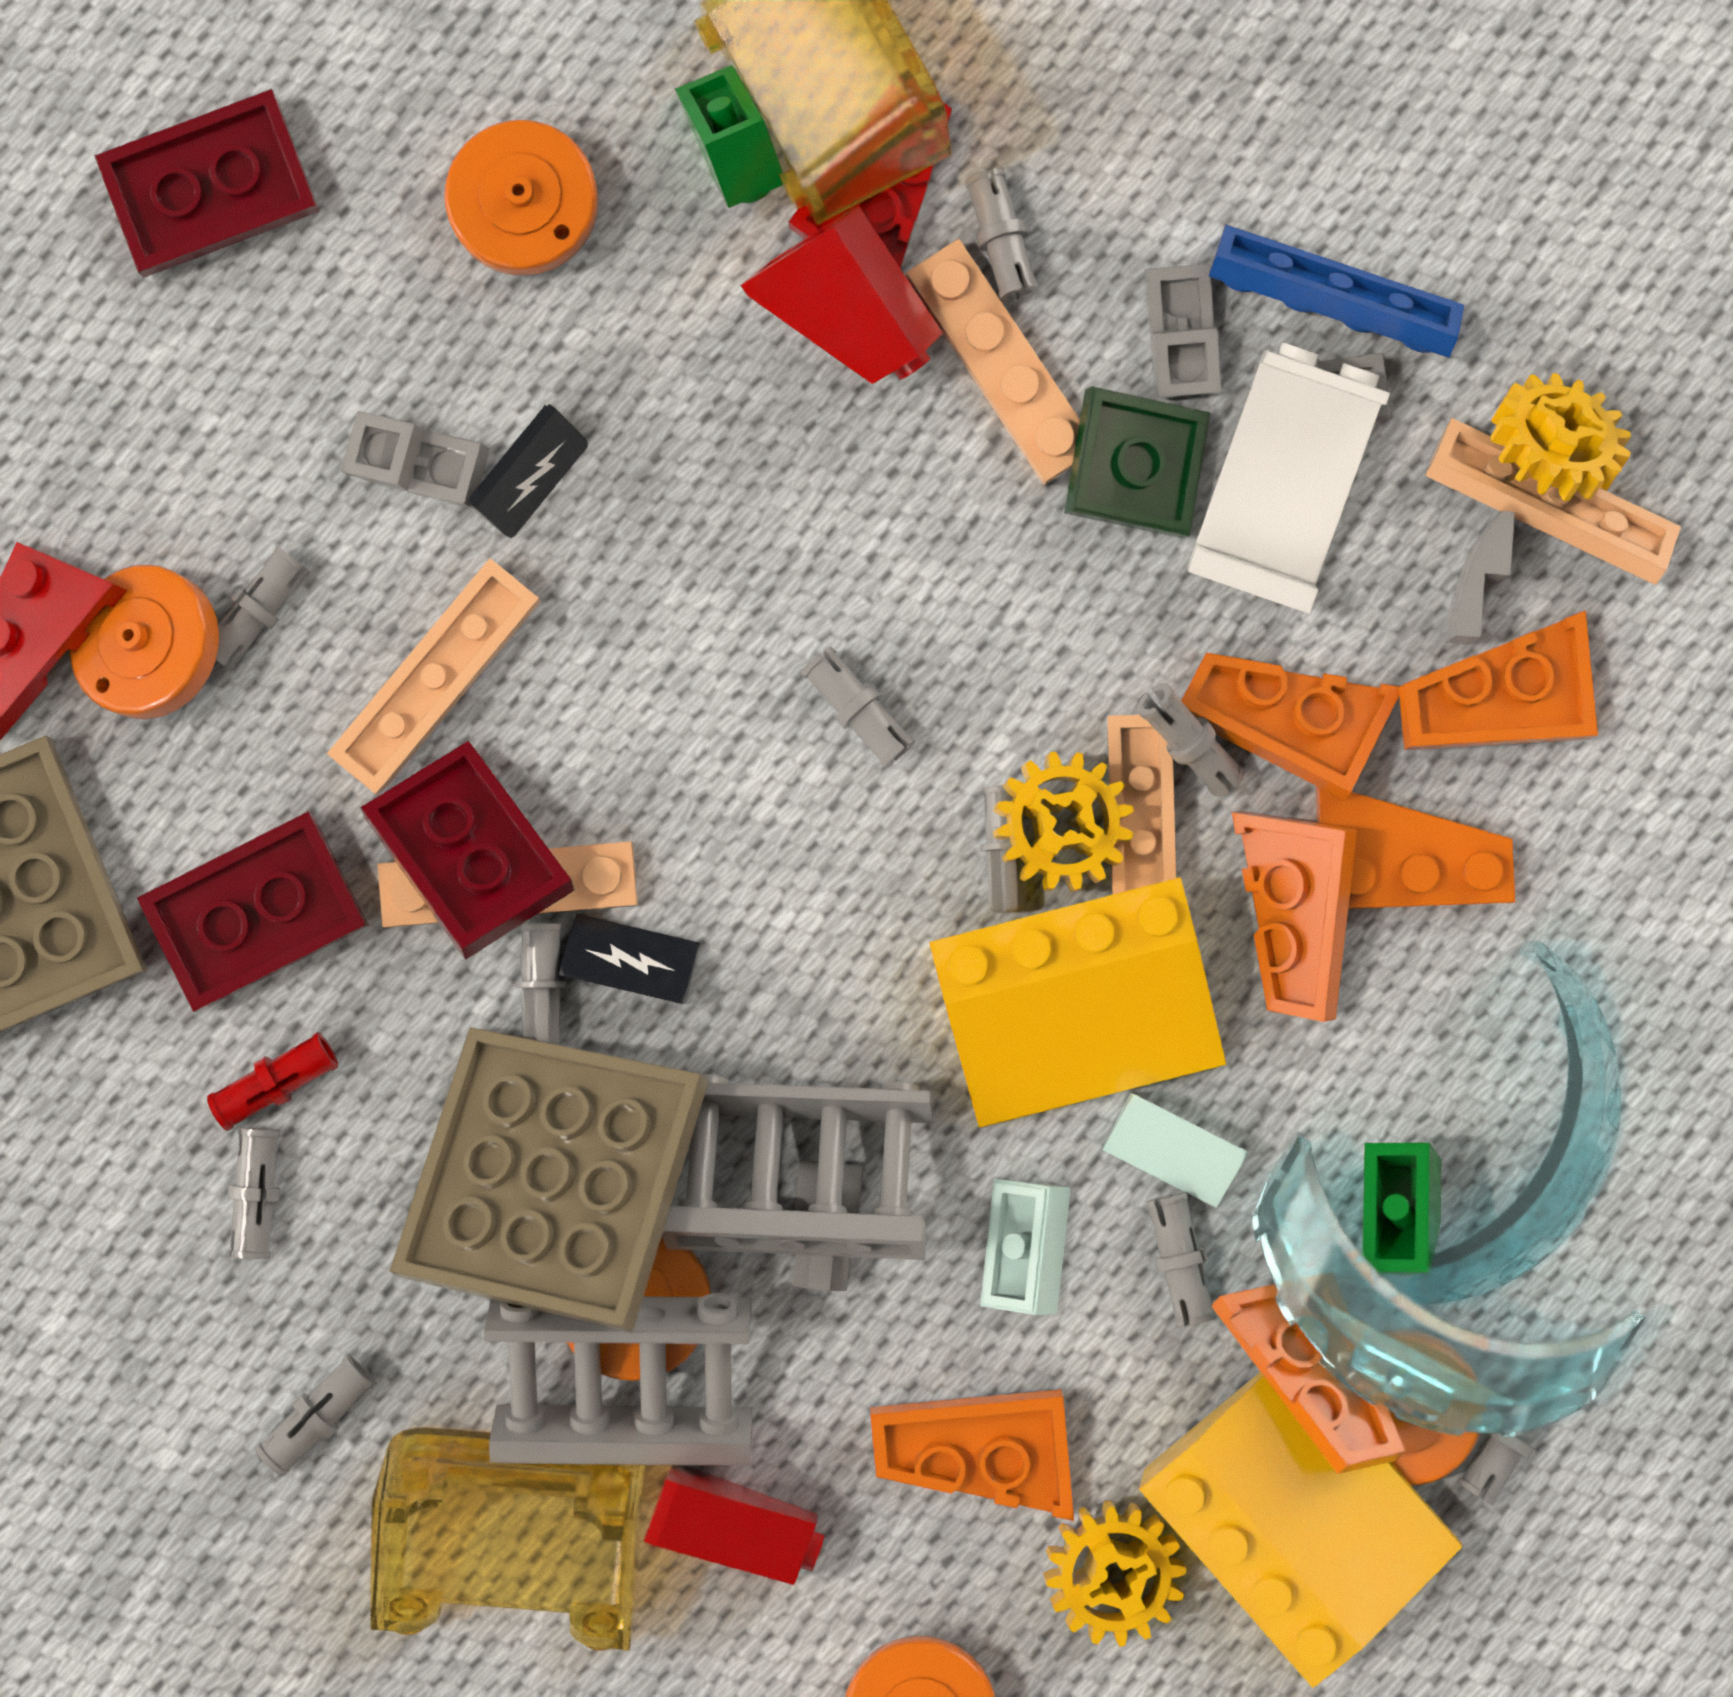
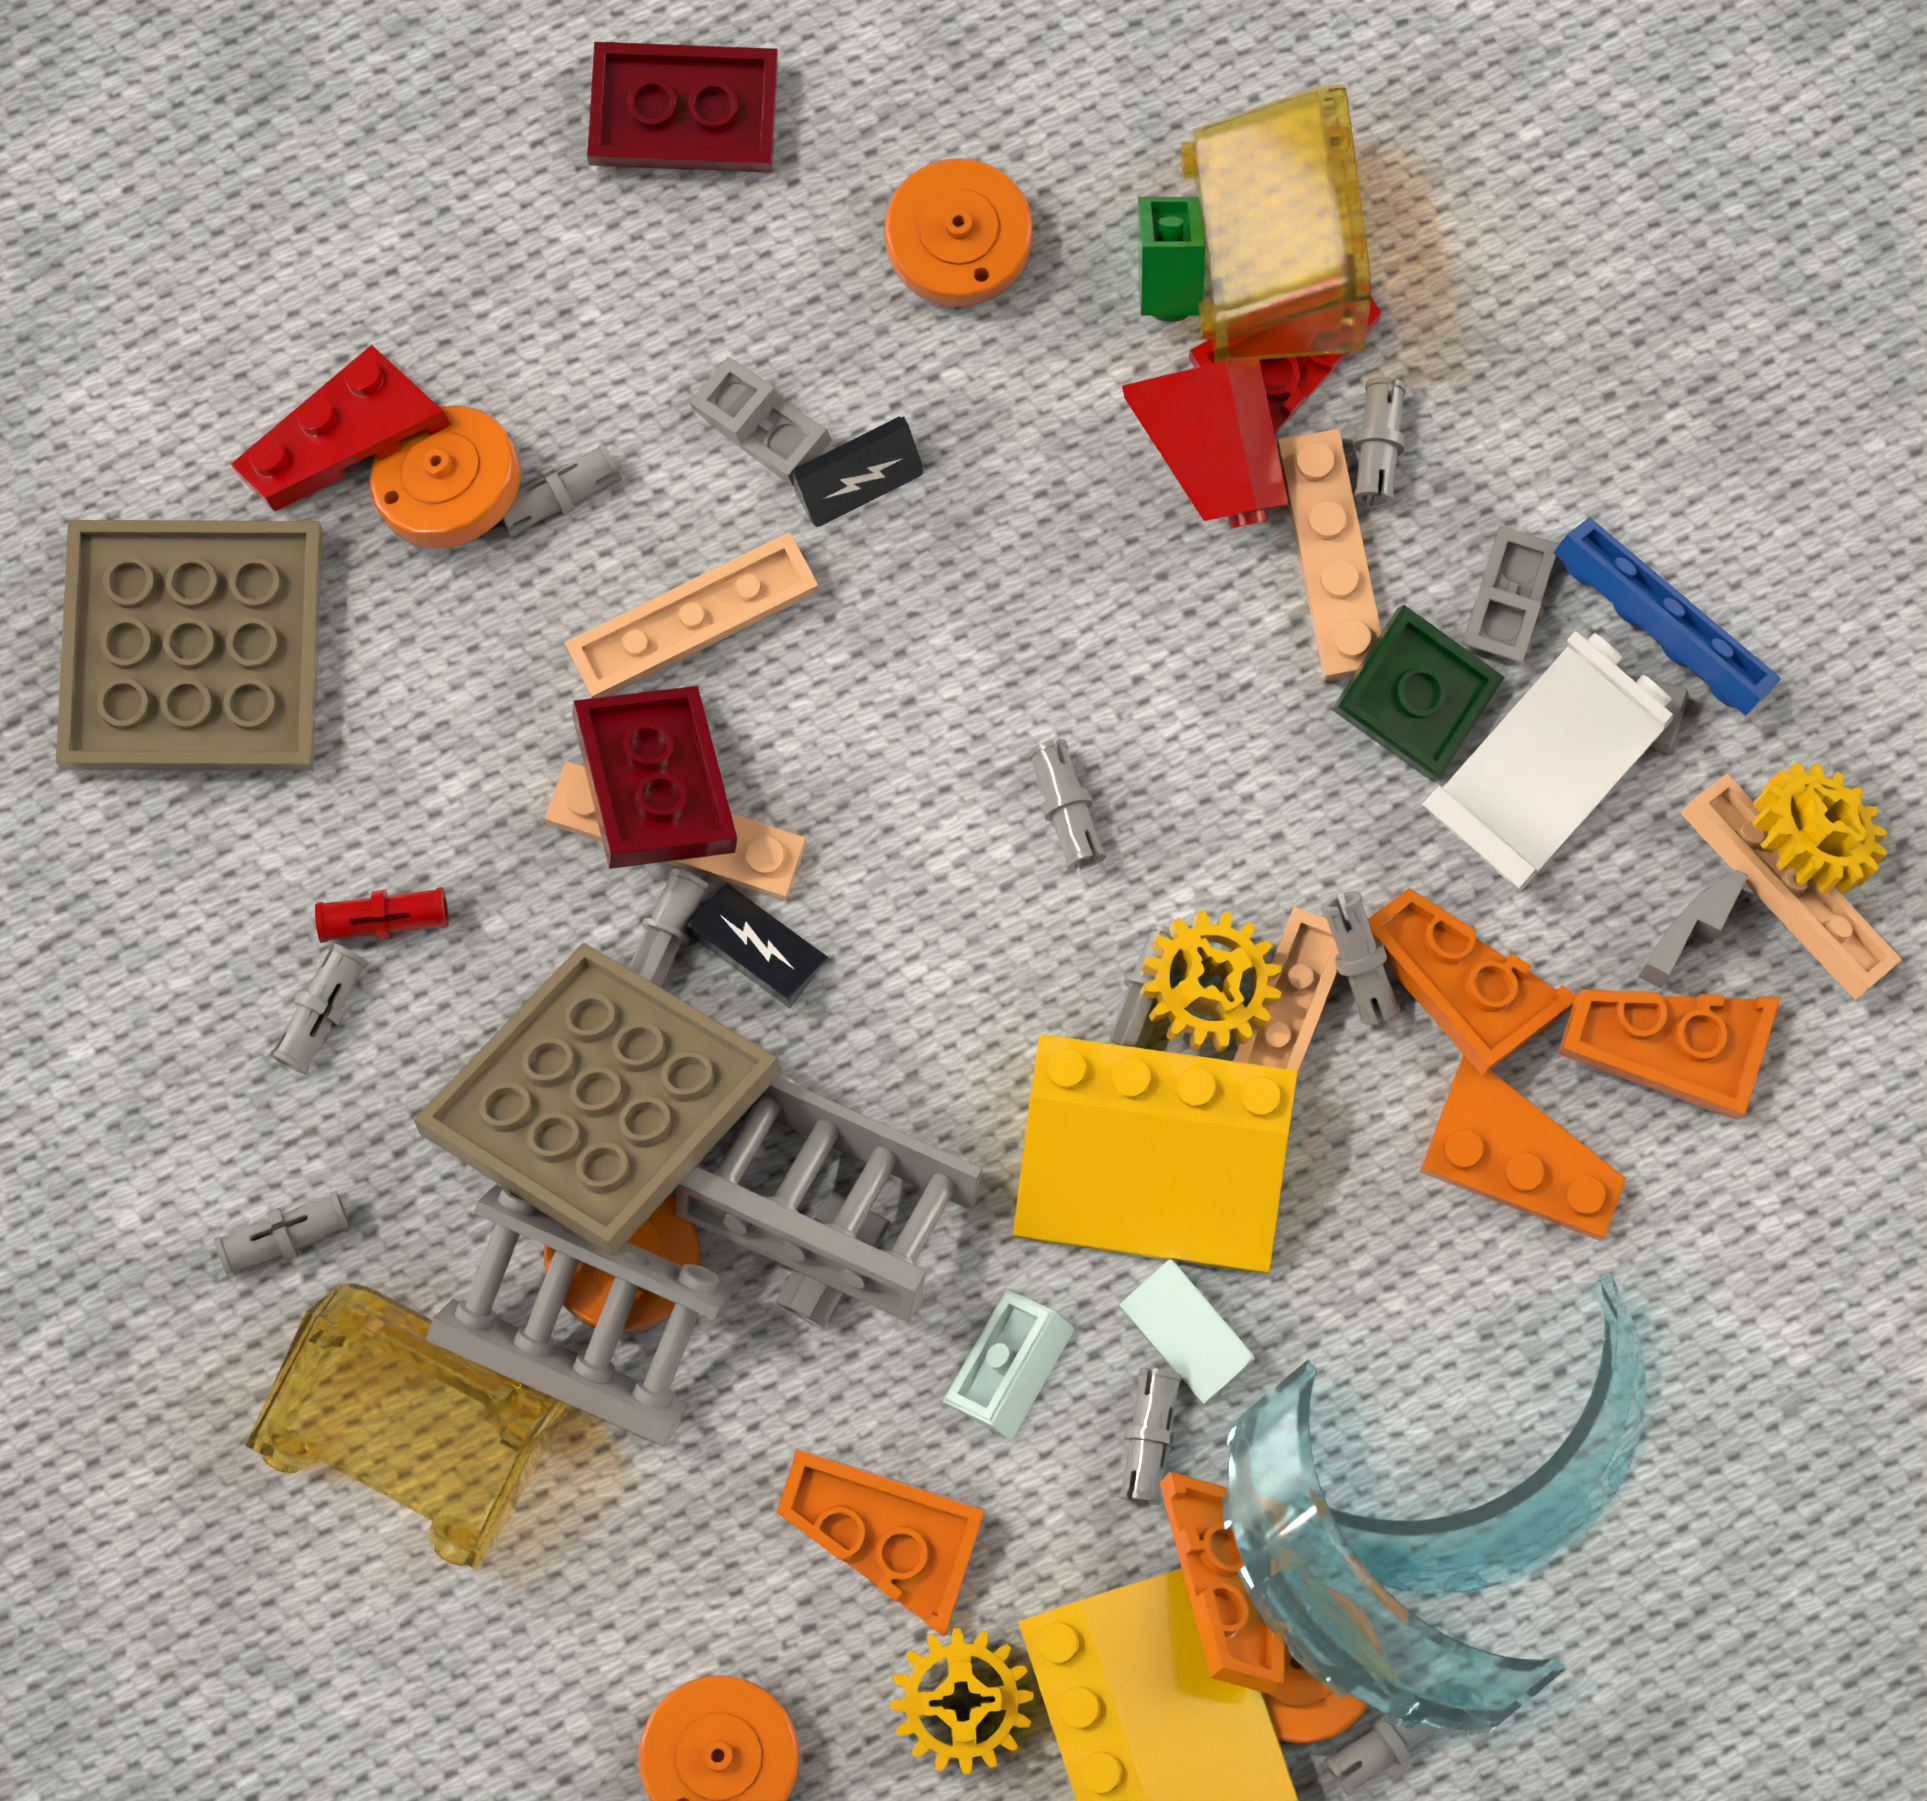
camera: 20 degrees right, 10 degrees down
(252, 911) = (433, 756): dark red plate -> none
(733, 1526) = (623, 1496): red slope -> none
(1301, 906) = (1401, 1151): orange wing -> none
(1401, 1206) = (1379, 1461): green slope -> none

